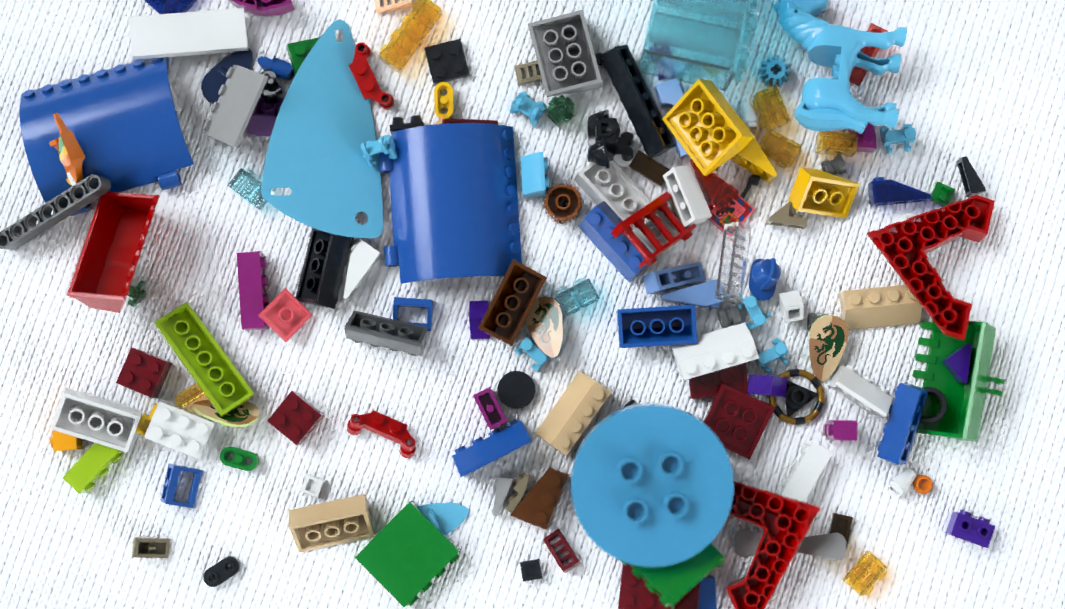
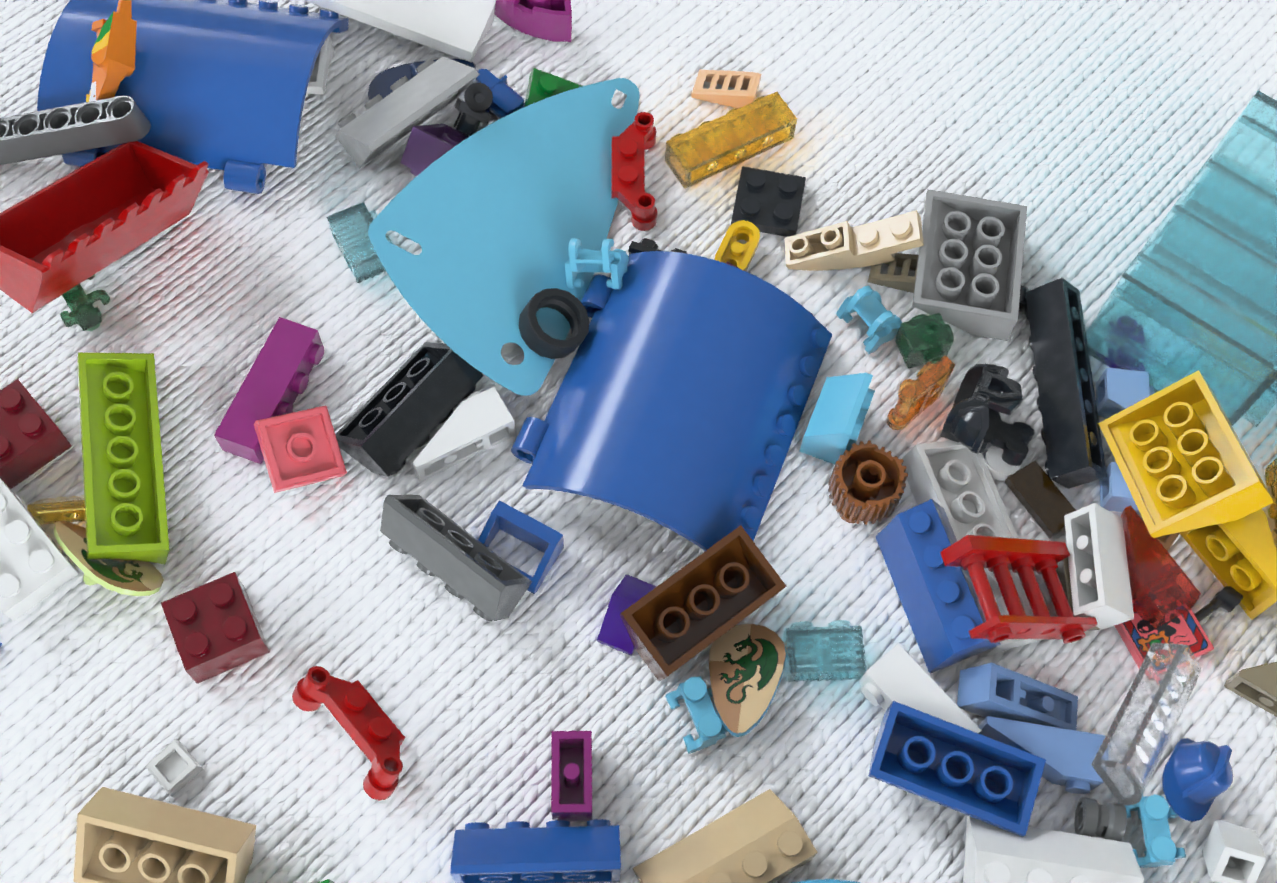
camera: 15 degrees right, 20 degrees down
(240, 458) = (78, 654): green plate -> none
(383, 182) = (567, 305): none -> black tyre
(502, 71) = (853, 247): none -> tan slope
(516, 389) = (636, 768): black tile -> none
(570, 141) = (919, 394): none -> clear orange plate
(622, 297) = (902, 680): none -> white slope

